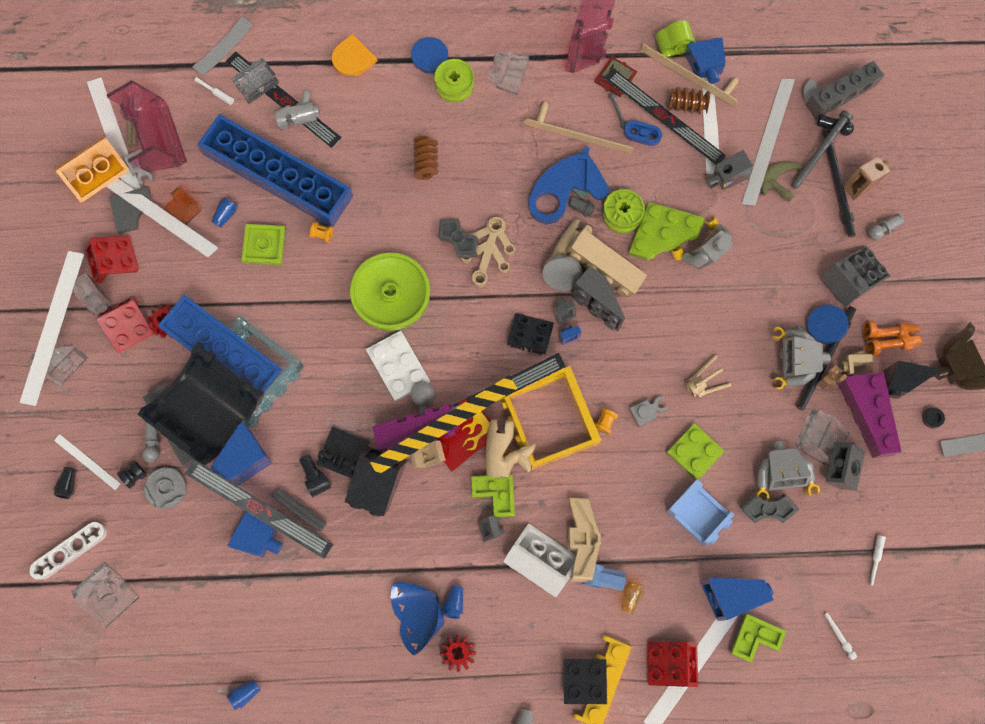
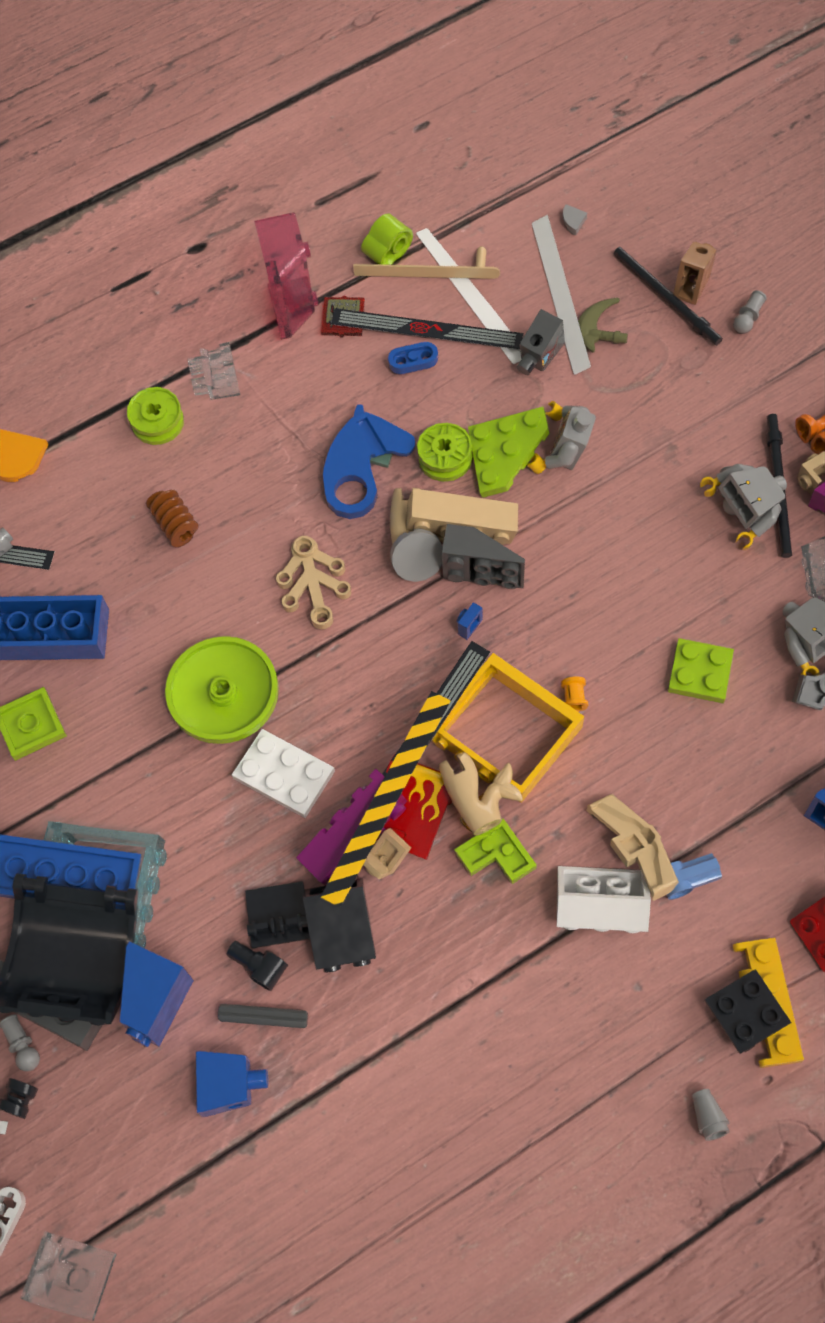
camera: 20 degrees left, 10 degrees down
(165, 488) = (71, 1092): light grey tile -> none
(242, 694) = (328, 1294): blue cone -> none
(258, 508) = (211, 1039): black sticker -> none
(321, 232) = (94, 669): light orange bush -> none
(420, 615) = (492, 1055): blue piece -> none
(422, 395) = (335, 788): light grey piece -> none
(429, 54) = (107, 404): blue tile -> none
(450, 655) = (579, 1065): red gear -> none
(454, 603) = (528, 1015): blue cone -> none
(464, 244) = (258, 584): dark grey tile -> none
(489, 528) = (515, 898): dark grey tile -> none
(530, 333) = (422, 645): black hinge -> none
(539, 123) = (289, 411): tan piece -> none
(564, 310) = (446, 597): dark grey tile -> none
(582, 206) = (393, 473): dark grey pin -> none
(612, 96) = (352, 338): dark grey hinge -> none
(631, 596) = (736, 877): clear yellow cone -> none
(645, 412) = (613, 658): light grey plate -> none
(690, 100) = (444, 294): dark orange piece -> none
(696, 386) = (654, 595): tan plant -> none
(700, 514) = (753, 736): light blue panel -> none
(707, 58) = (435, 243): blue torso -> none
(828, 324) = (757, 445): blue tile -> none
(829, 123) = (637, 235): black pin -> none
(834, 376) = (801, 499): medium nougat plate -> none
(844, 89) = (609, 197): dark grey brick -> none
(845, 117) = (629, 221): dark grey bar -> none
(855, 275) = (751, 380): dark grey slope -> none

